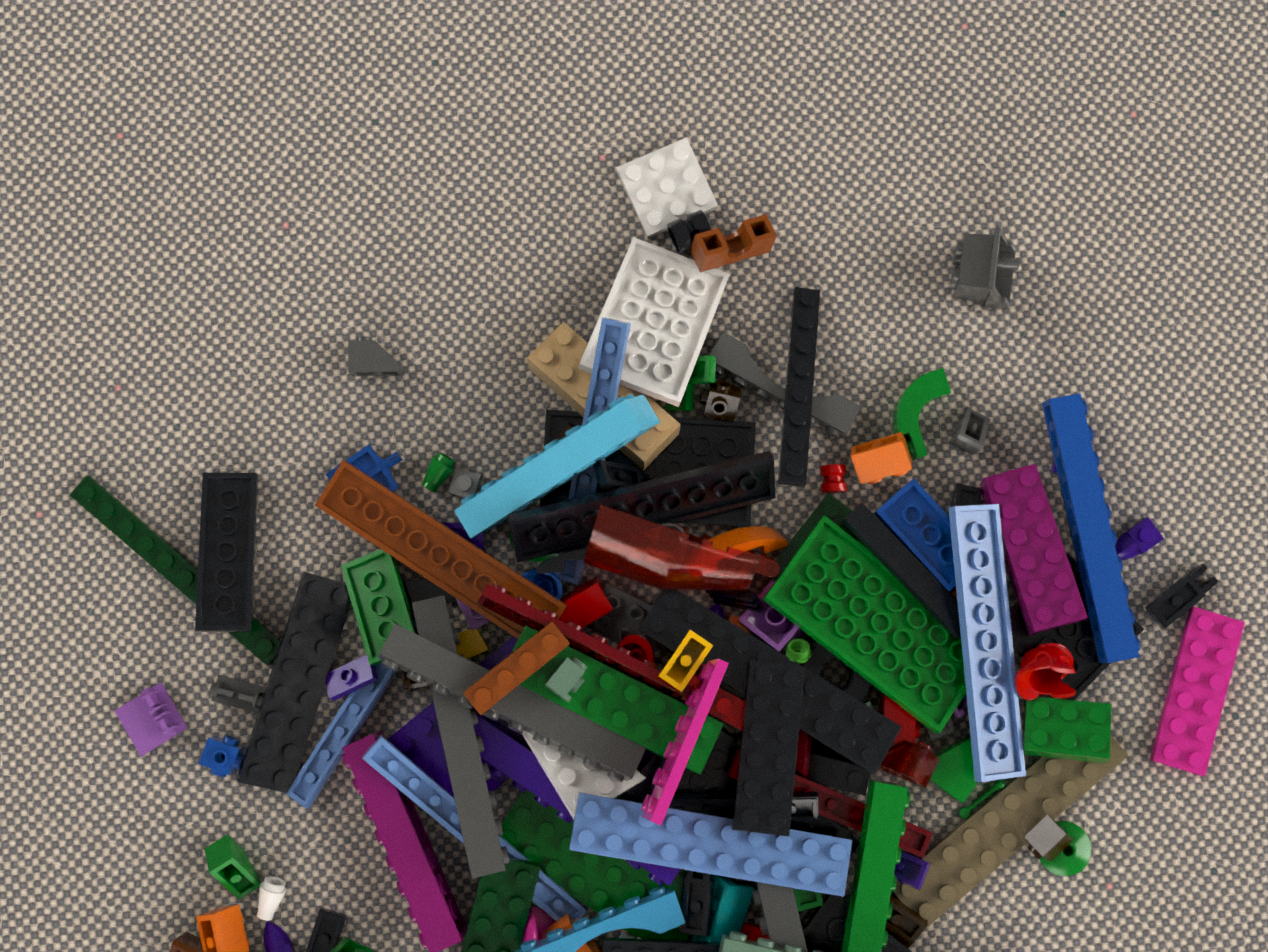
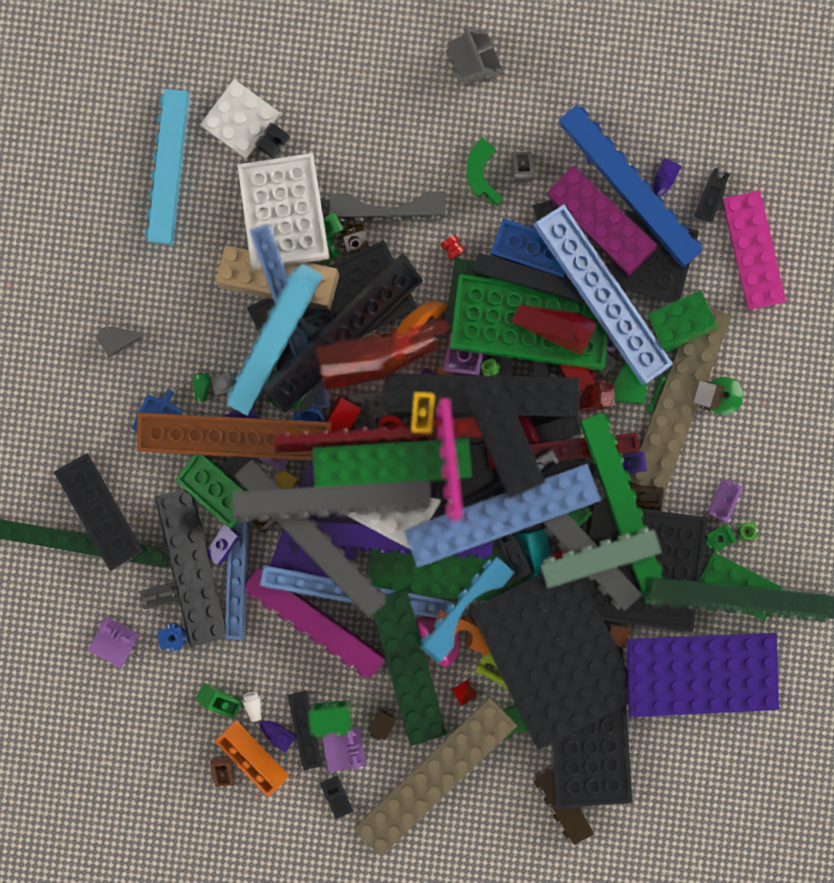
camera: 25 degrees left, 5 degrees up
(516, 667) = (322, 476): dark orange plate -> none
(550, 195) = (168, 167): none -> medium azure brick
(566, 678) = (356, 464): sand green brick -> none
(737, 598) = (437, 356): black tile -> none
(752, 239) = (295, 143): dark orange arch -> none
(799, 387) = (397, 201): black plate -> none
(881, 458) = (475, 217): orange brick -> none
(915, 653) = (561, 327): none -> dark red wedge
(1043, 672) = (649, 293): red helmet -> none

